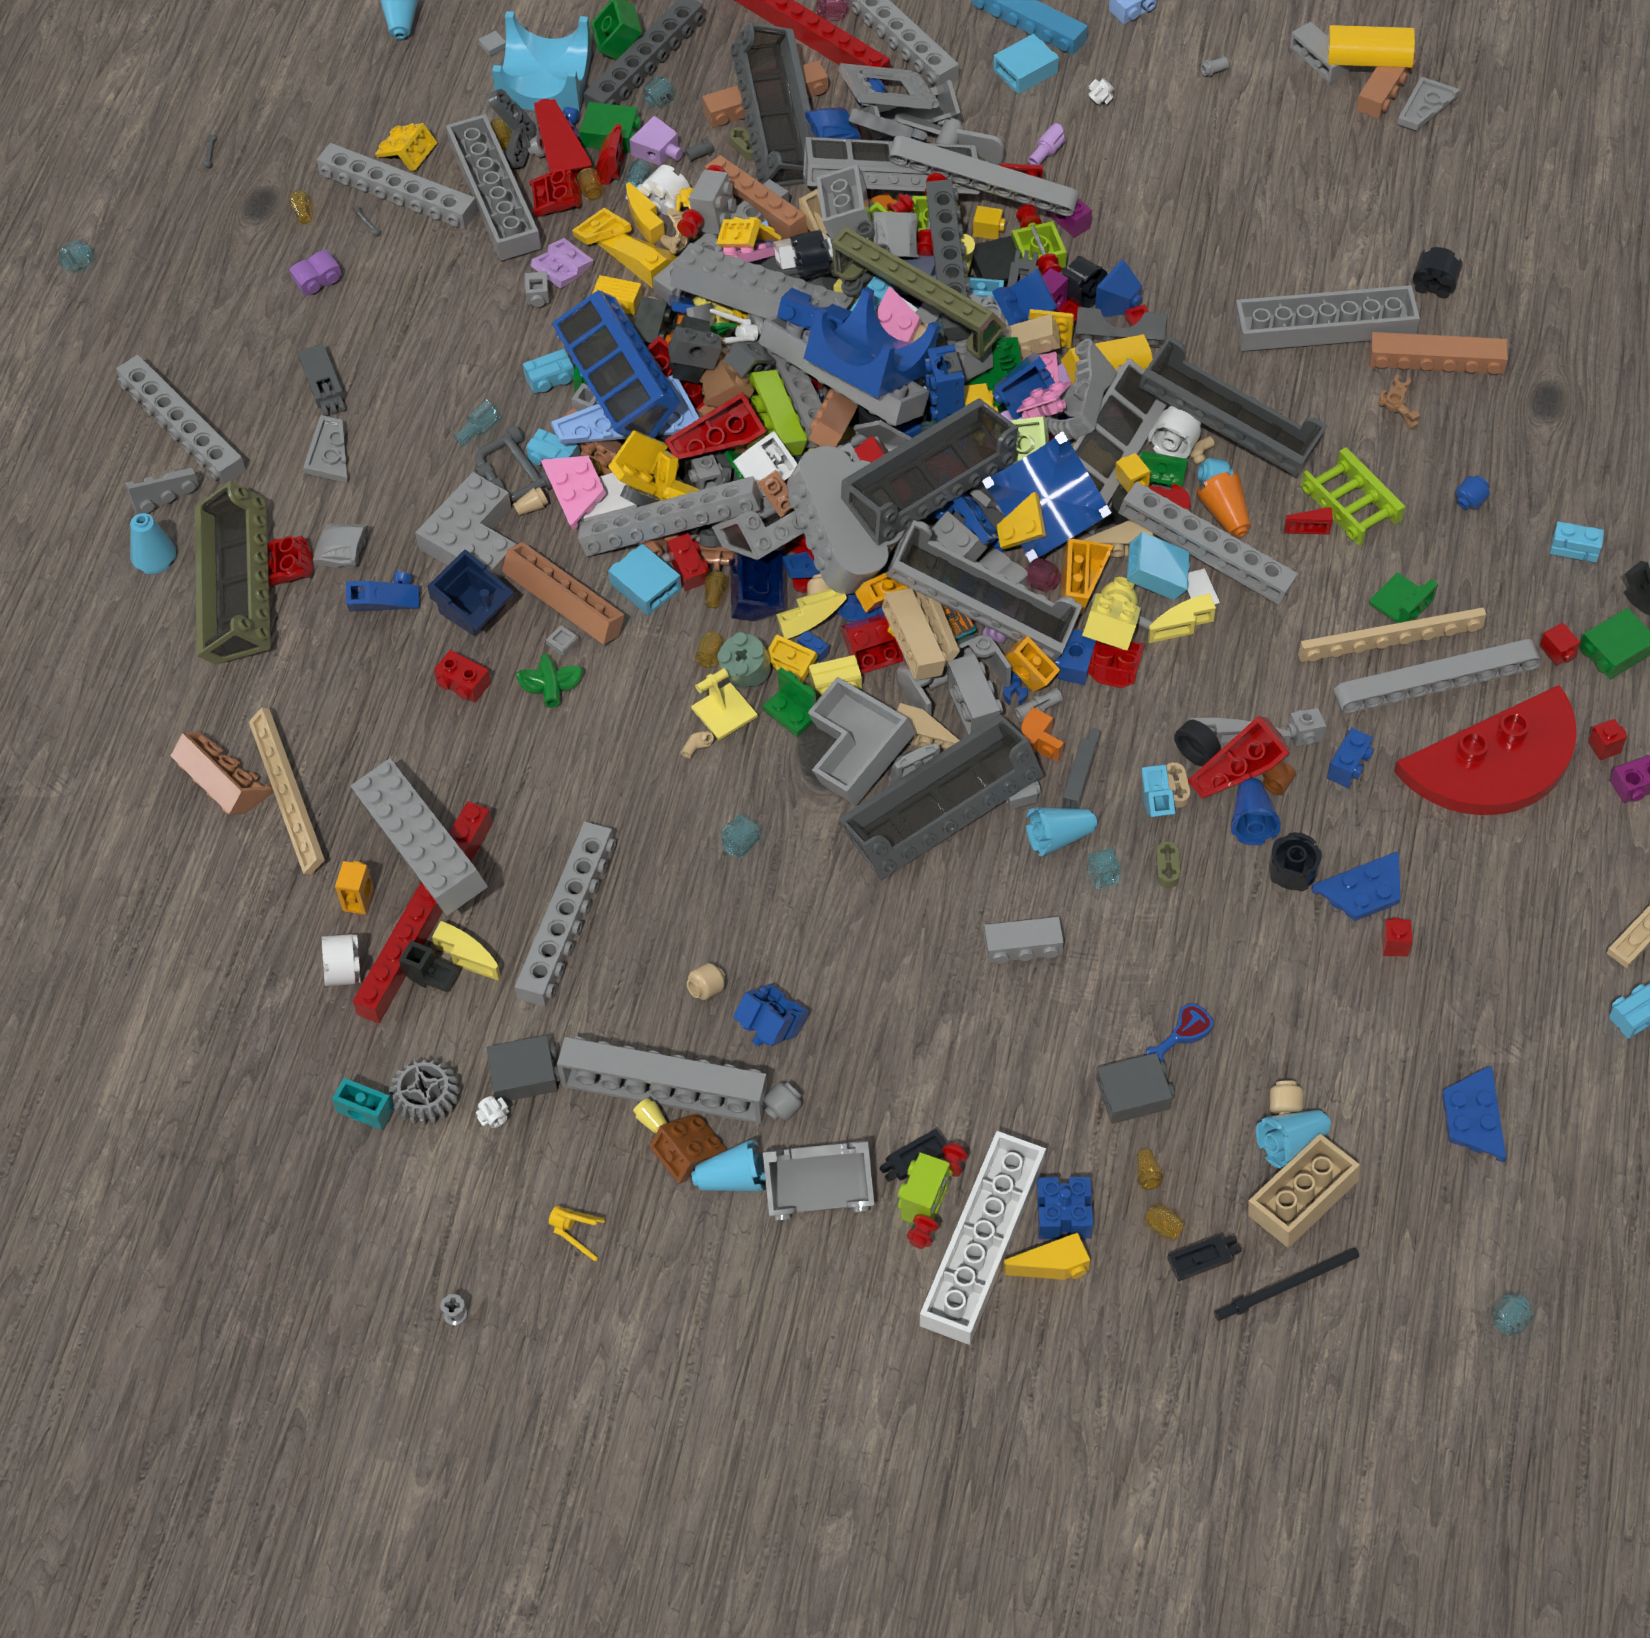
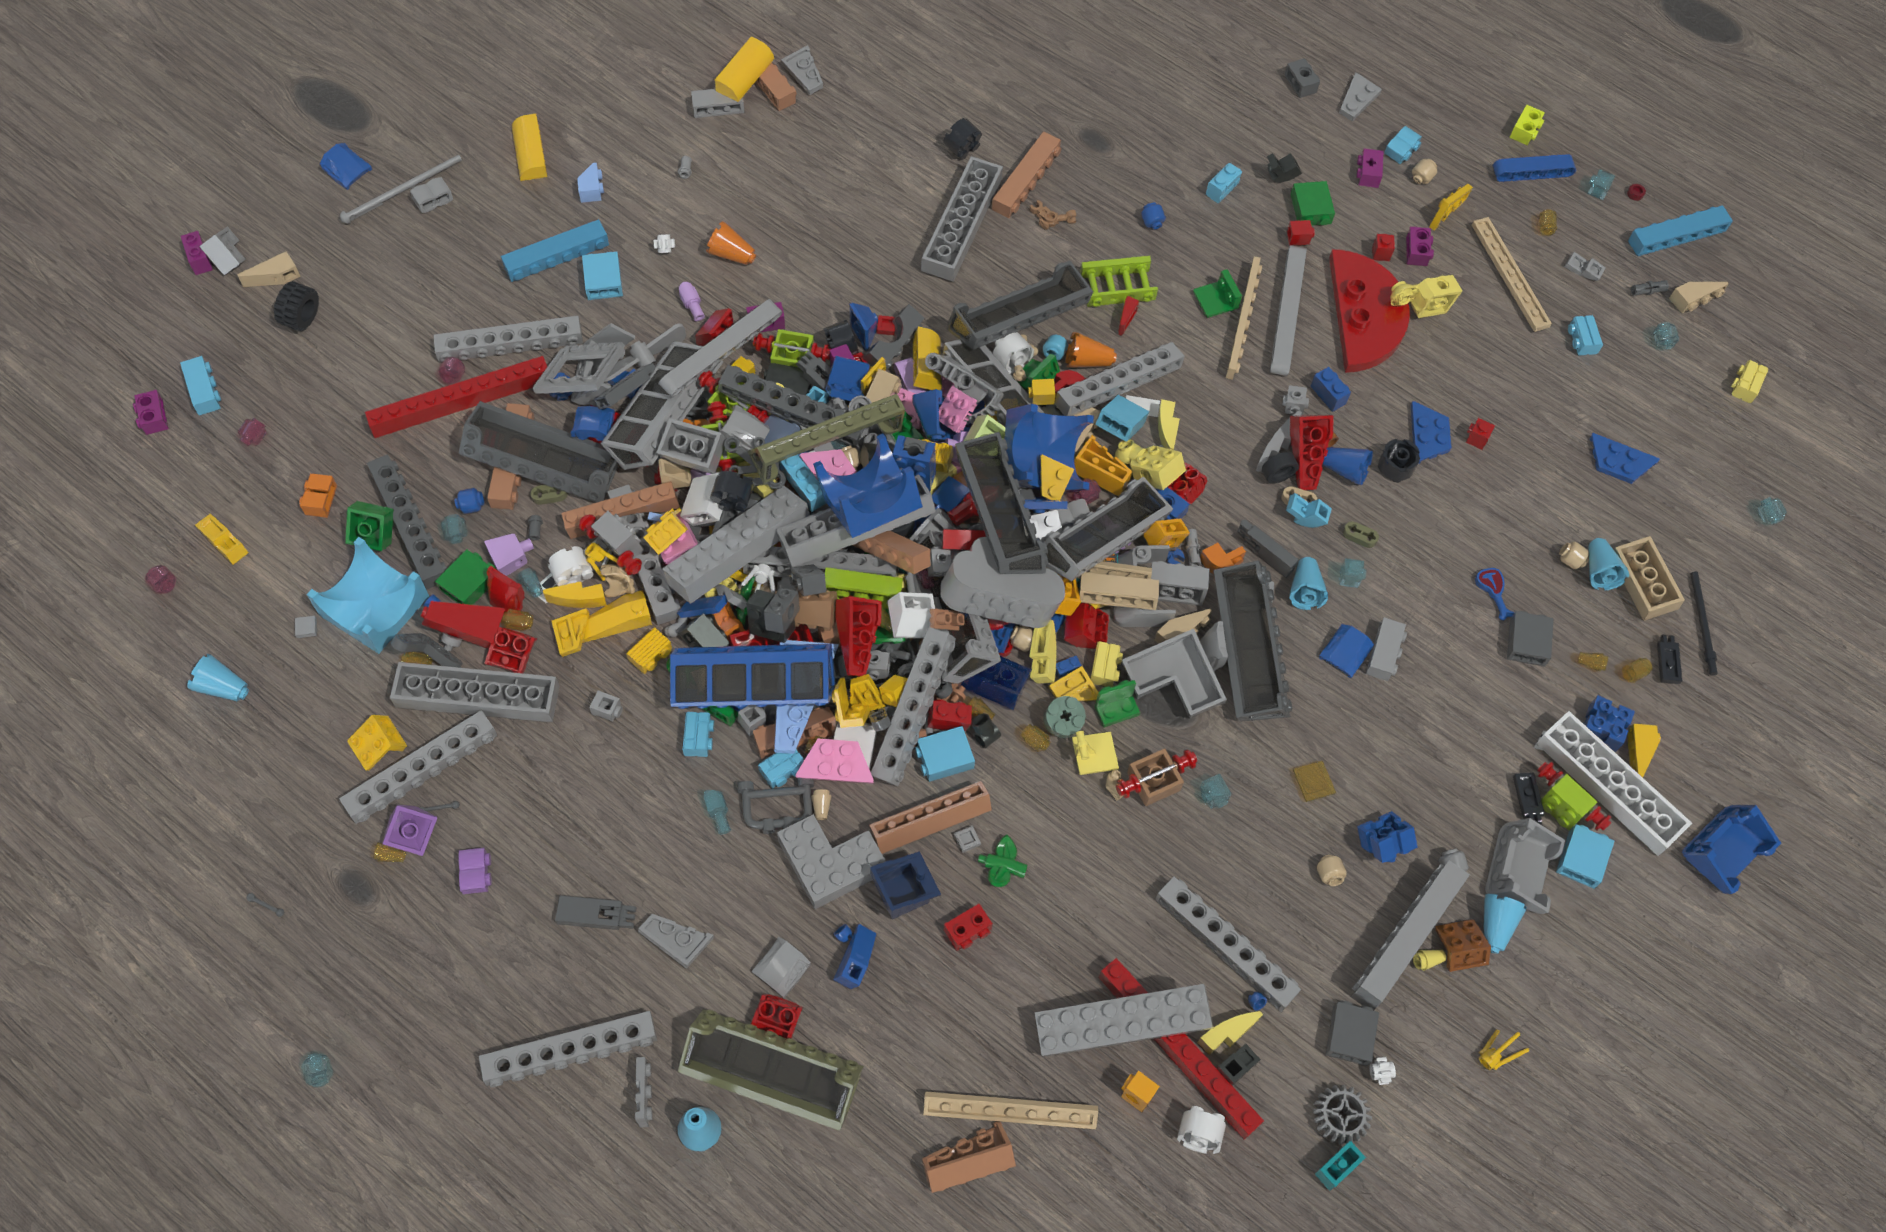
camera: 70 degrees left, 5 degrees up
(329, 205) = (409, 829): none -> medium lavender slope
(460, 1313) = (1546, 1169): light grey bush -> none
(512, 964) = (1257, 1001): none -> blue hinge
(562, 263) = (585, 677): lavender slope -> none
(689, 600) = (985, 730): none -> pearl dark grey piece
(694, 86) = (469, 500): none -> blue head
(720, 768) = (1156, 776): none -> medium nougat brick
(797, 309) = (788, 523): blue arch -> none
(810, 929) = (1314, 781): none -> clear yellow piece
(871, 1239) = (1585, 856): none -> medium azure brick
(970, 1400) = (1730, 845): none -> blue windscreen
(995, 901) = (1347, 649): none -> blue slope
(1136, 139) = (730, 245): none -> orange cone
(1146, 447) = (1019, 373): none -> tan arm
(1559, 805) = (1429, 297): none -> light yellow brick

